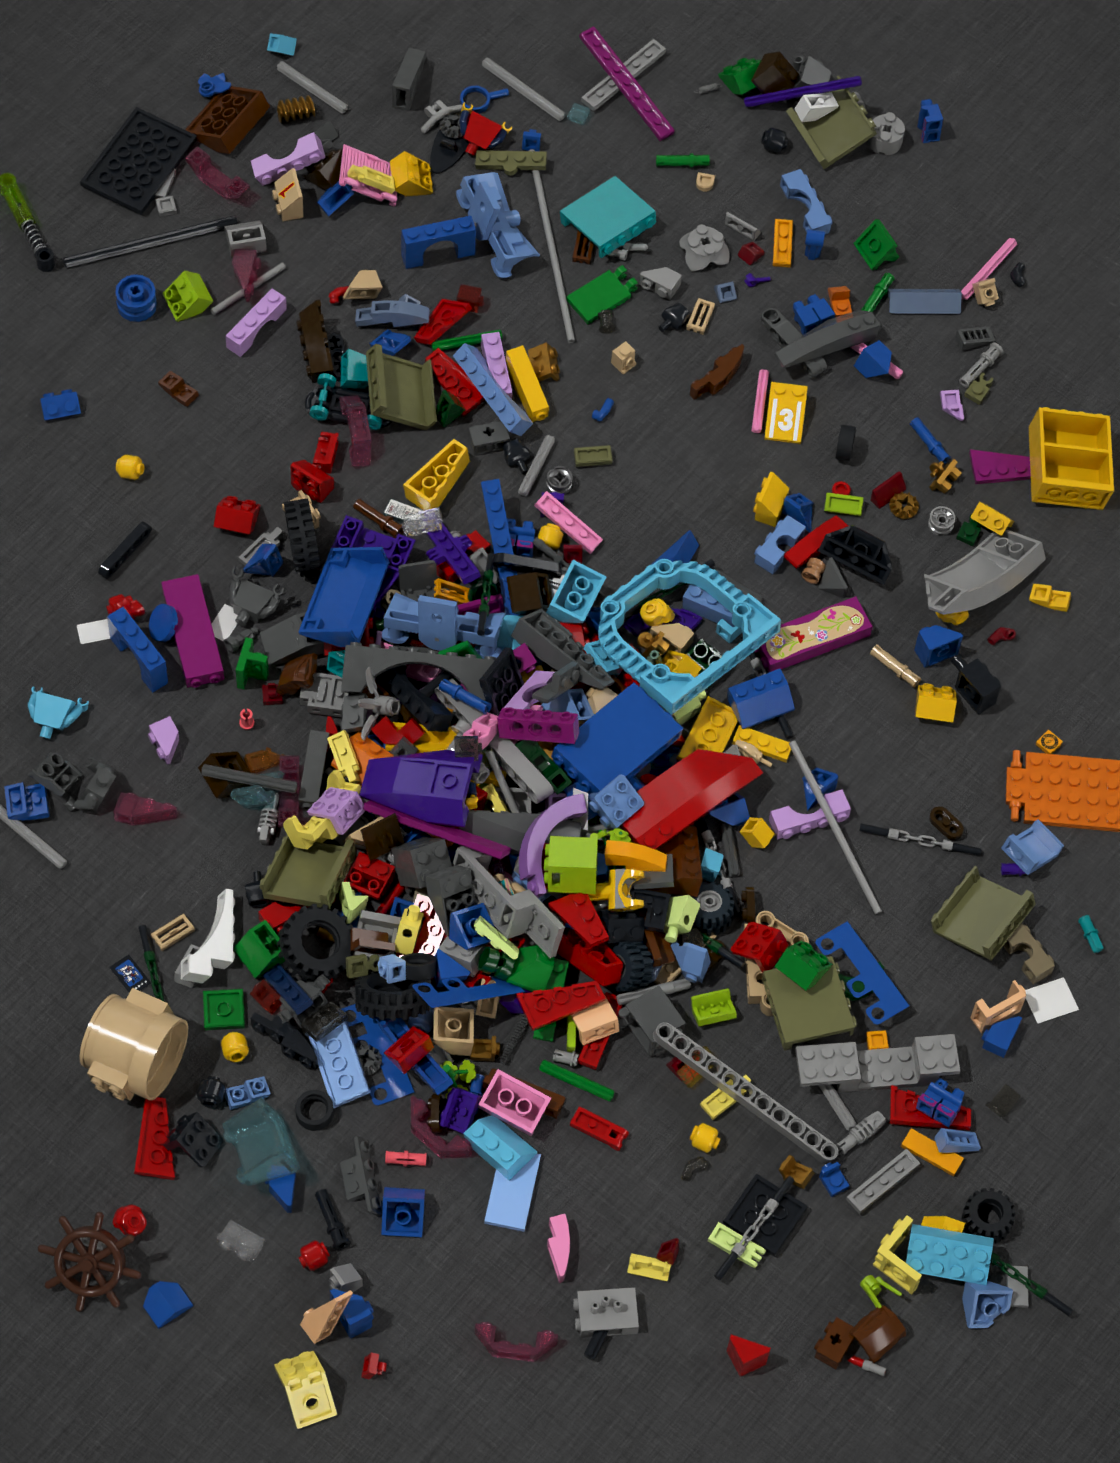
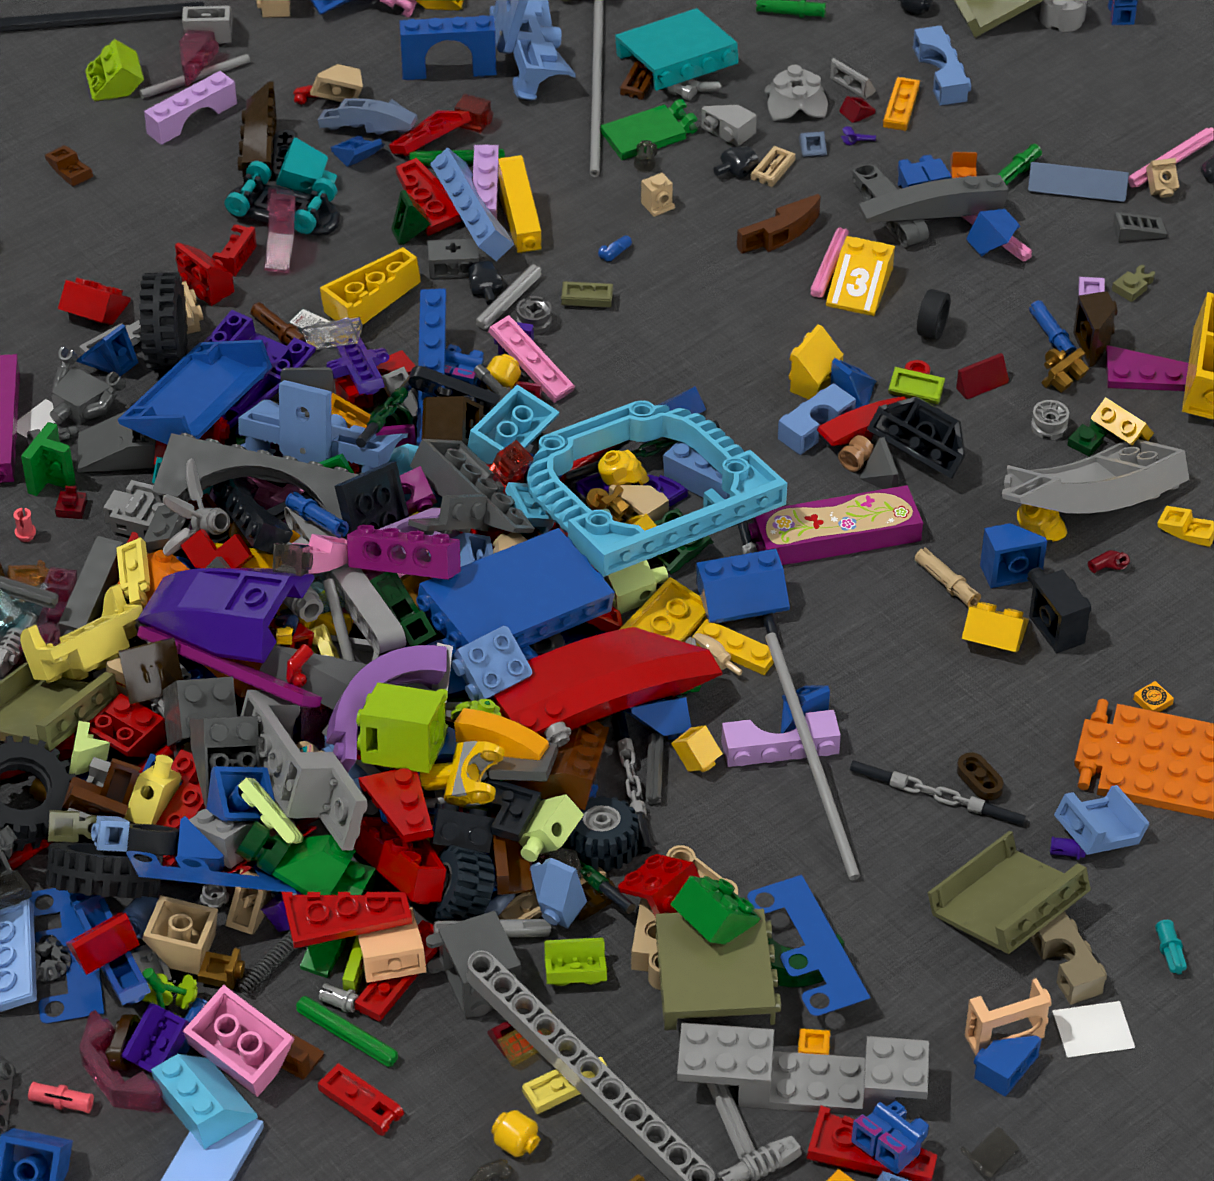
camera: 15 degrees right, 15 degrees down
(136, 298) = (47, 66): blue wheel -> none
(297, 674) = (106, 481): reddish brown slope -> none
(339, 806) = (104, 630): lavender bracket -> none
(386, 927) = (120, 781): none -> reddish brown slope
(401, 389) = (349, 190): olive panel -> none
(486, 824) = (294, 666): none -> red arm
(544, 362) = (551, 188): pearl gold bracket -> none
(585, 628) = (511, 463): none -> clear red brick
(669, 846) = (558, 733): none -> light grey plate
(705, 181) = (815, 32): tan tile -> none
(710, 864) = (617, 779): medium azure panel -> none
(748, 897) = (664, 830): dark brown plate -> none
(813, 243) = (941, 97): blue piece -> none
(876, 245) = (1025, 113): green bracket -> none
(909, 510) = (1005, 404): pearl gold gear -> none
(959, 436) = (1094, 324): none -> dark brown slope
(986, 360) = (1149, 251): light grey pin -> none

